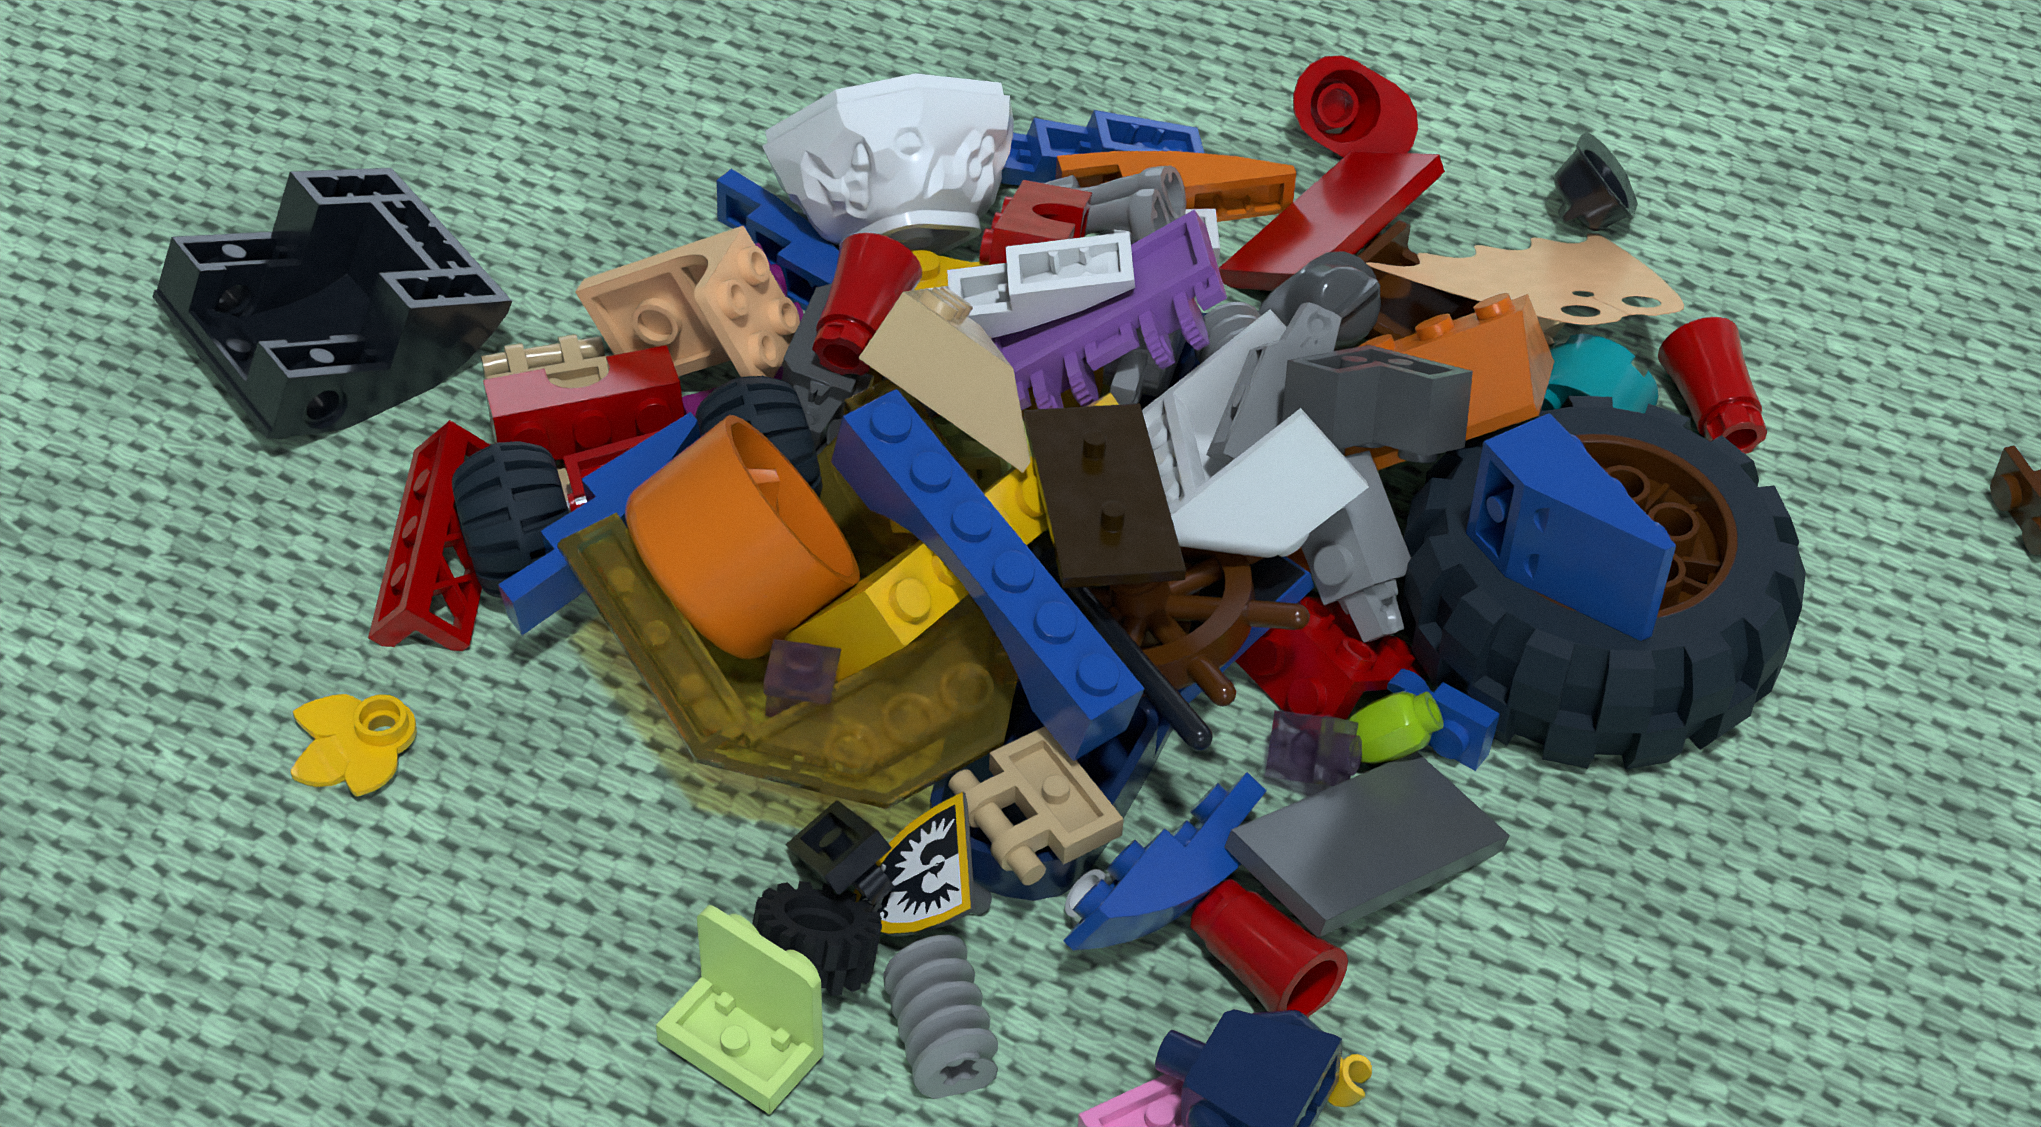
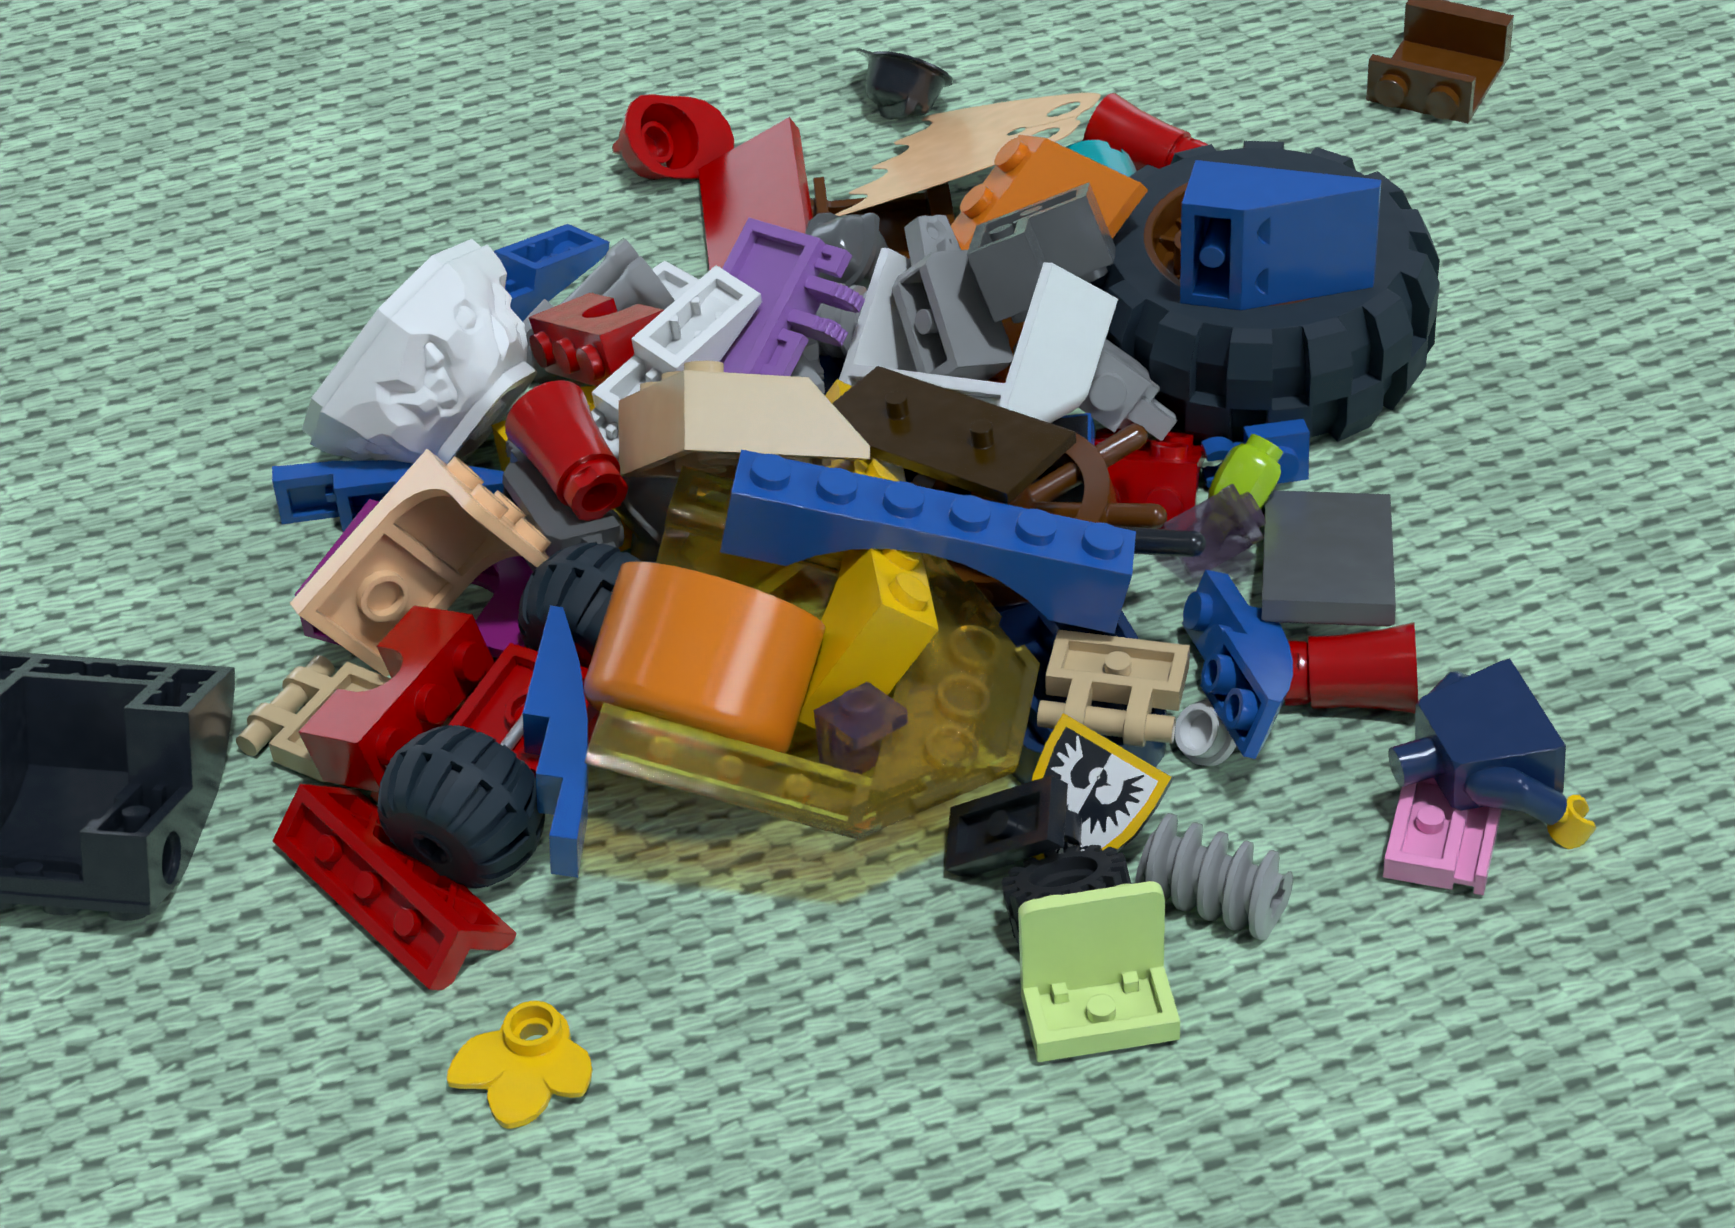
camera: 40 degrees left, 5 degrees down
(1226, 183) = (656, 235): orange slope -> none

